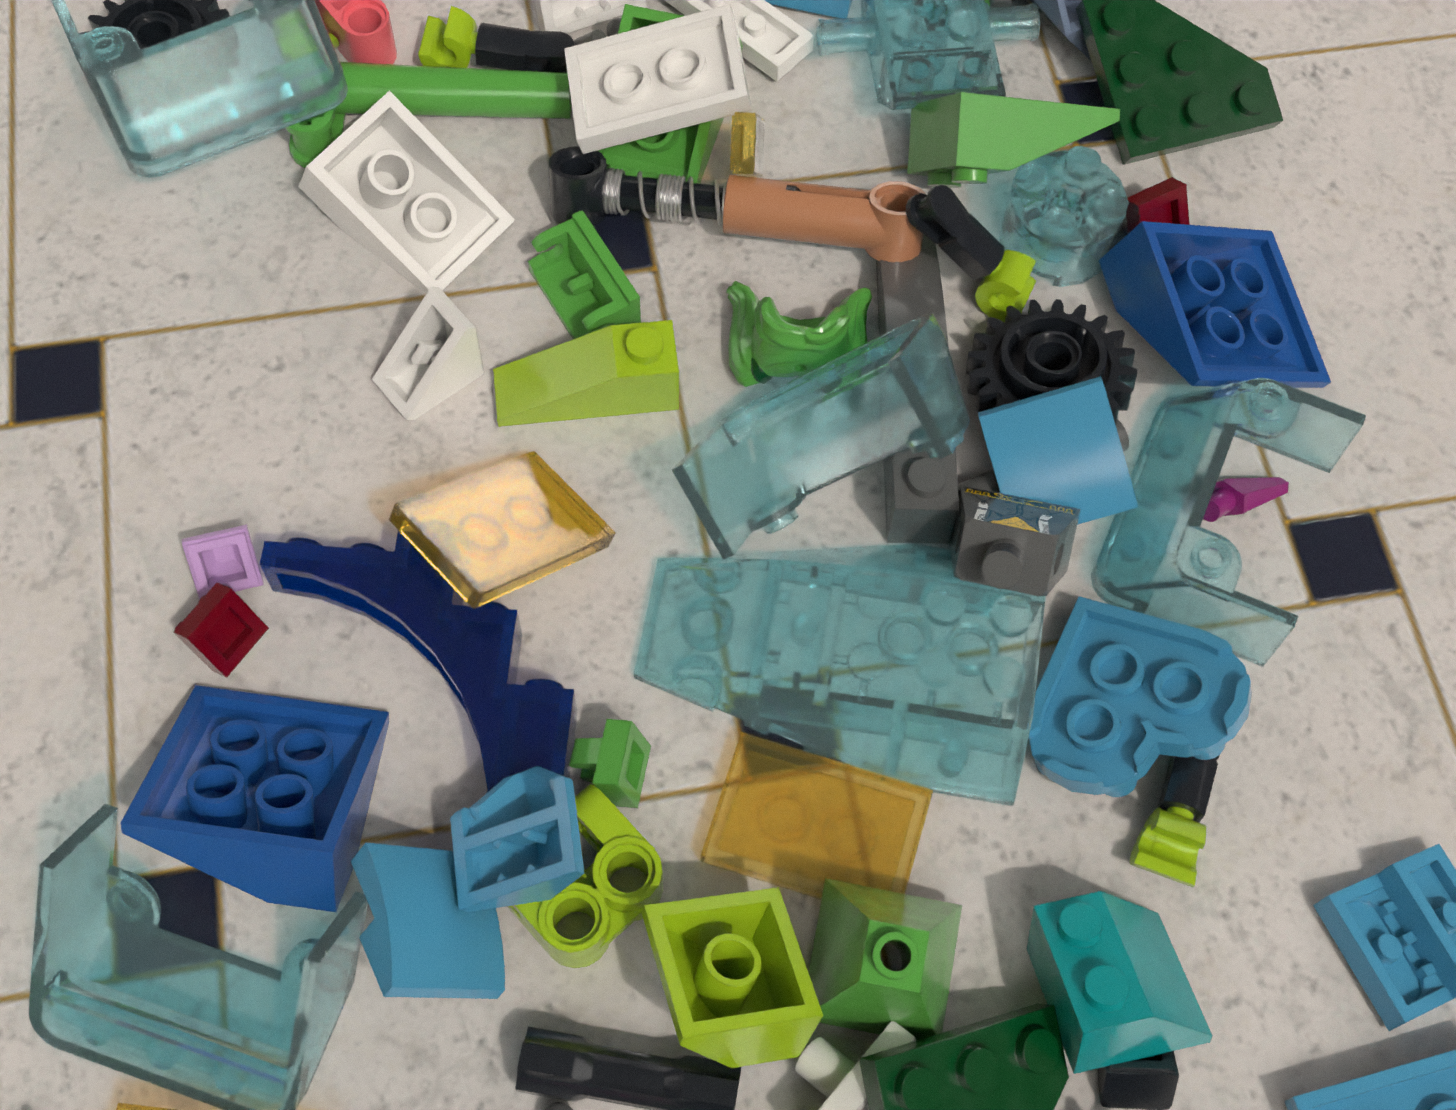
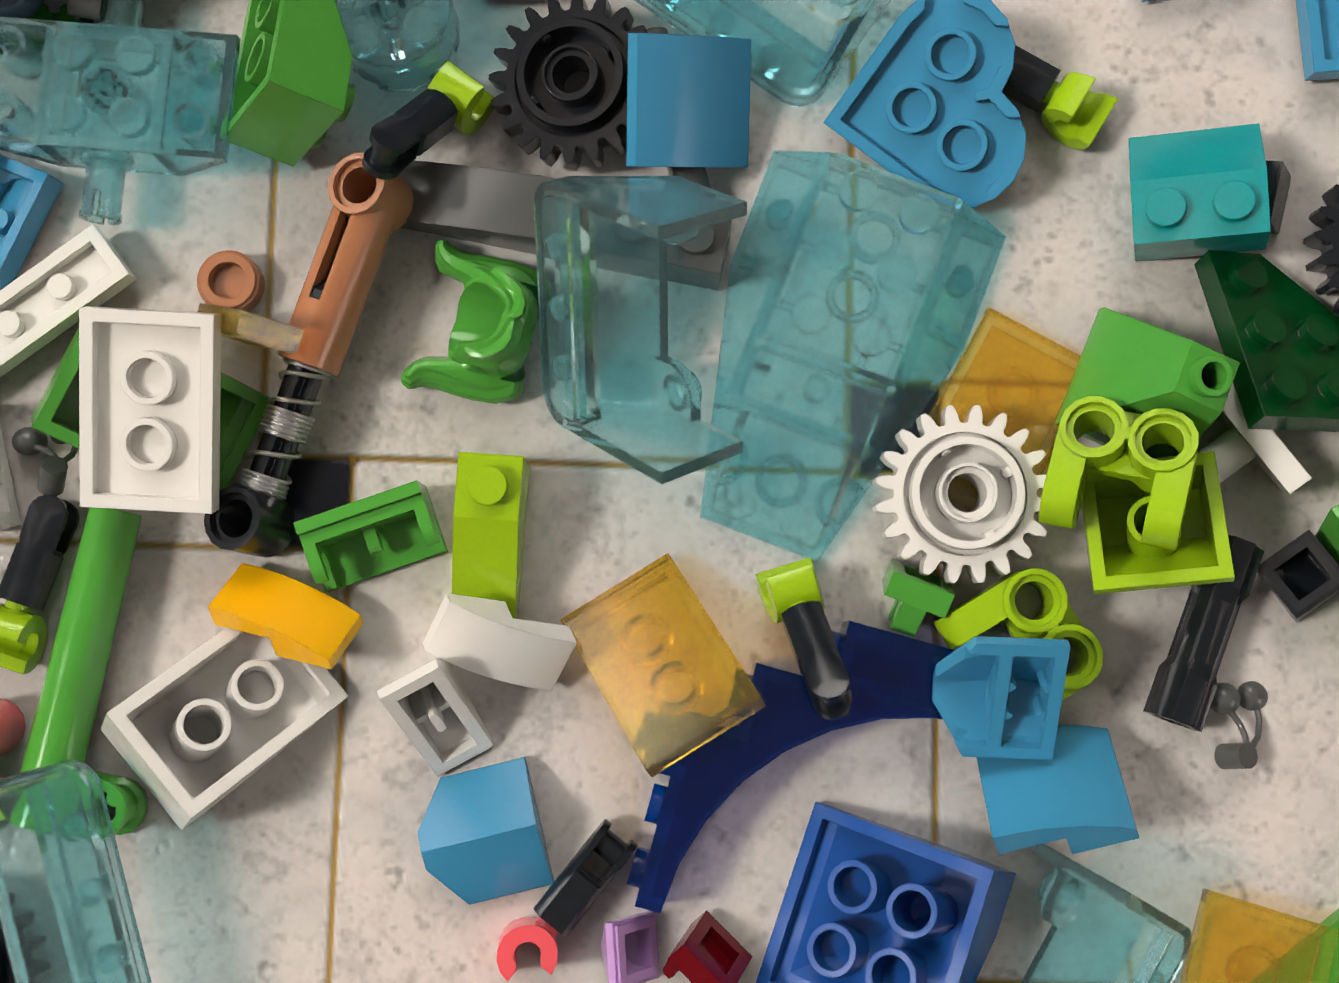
camera: 75 degrees left, 20 degrees up
(255, 493) = (564, 901): none -> black piece
(322, 426) = (486, 833): none -> dark azure slope
(496, 398) = (489, 642): none -> white slope
(500, 230) = (295, 616): none -> yellow slope
(553, 654) = (795, 598): none -> black piece
(717, 822) = (921, 501): none -> white gear
(771, 951) = (1122, 458): none -> lime piece
(791, 148) = (230, 281): none -> nougat tile
(1011, 541) = (776, 168): dark grey torso -> none

